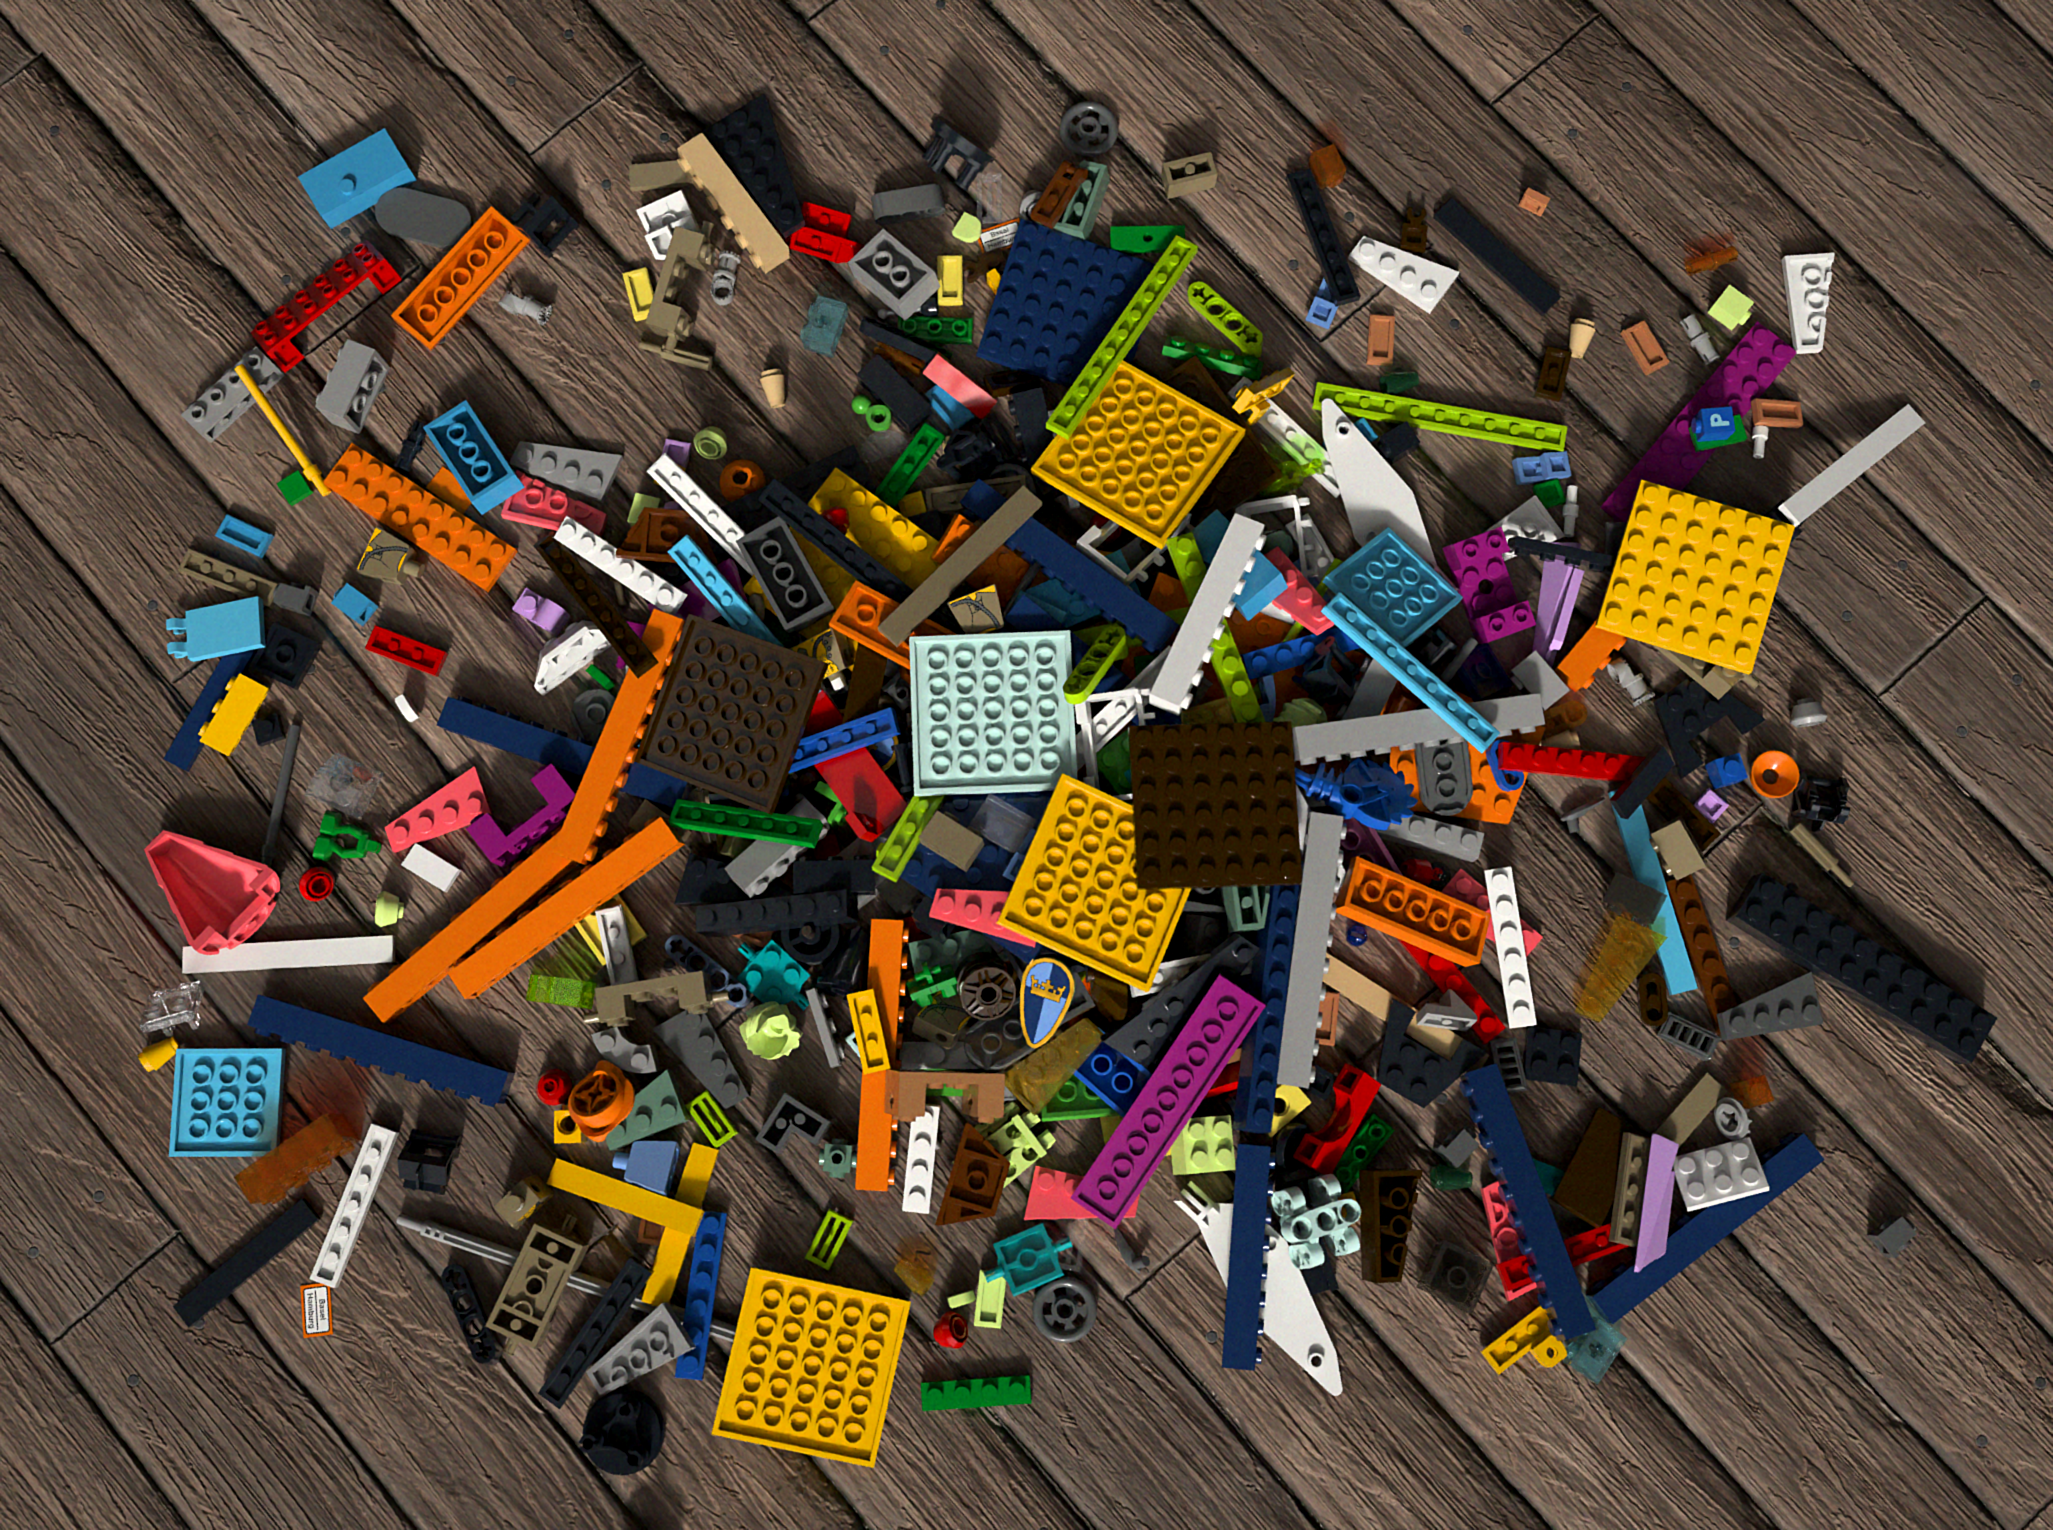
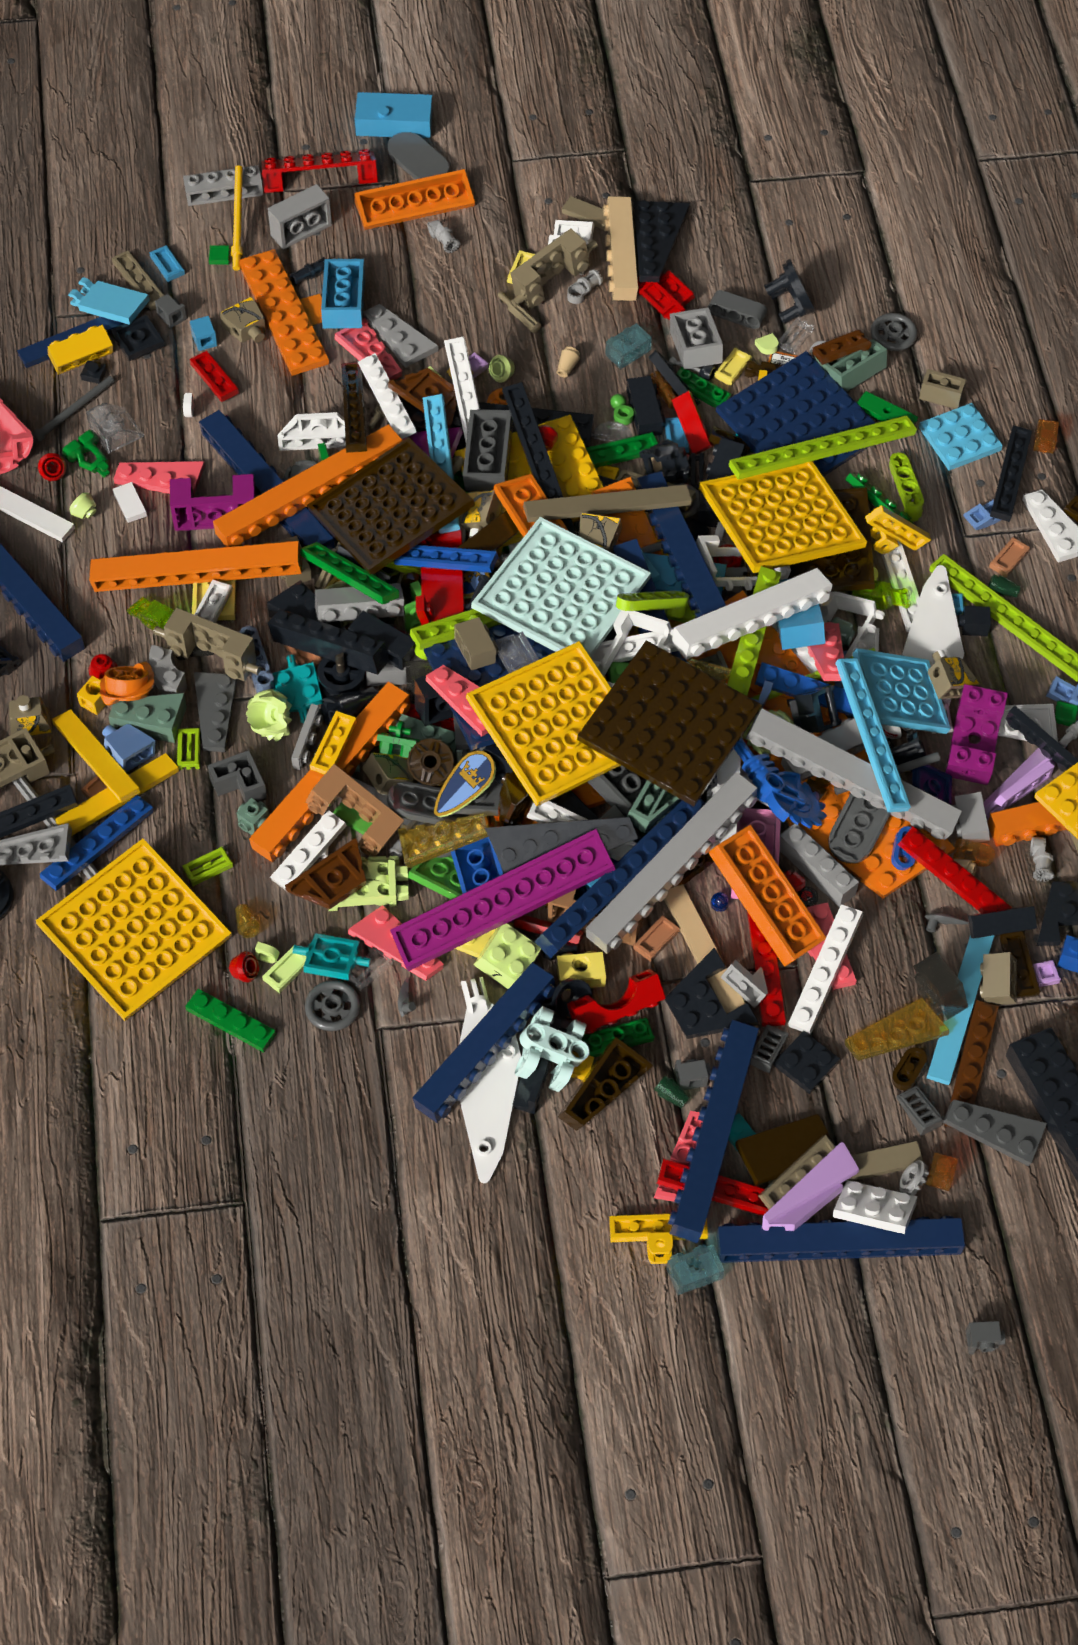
camera: 30 degrees right, 20 degrees down
(467, 930) = (77, 552): orange brick -> none
(536, 215) = (490, 189): black piece -> none
(541, 612) = (316, 400): lavender plate -> none
(1239, 220) = (960, 436): none -> medium azure plate
(1322, 1083) = (620, 973): black plate -> none
(1424, 534) = (950, 675): none -> dark tan torso
(1455, 1276) = (626, 1151): clear smoke brick -> none

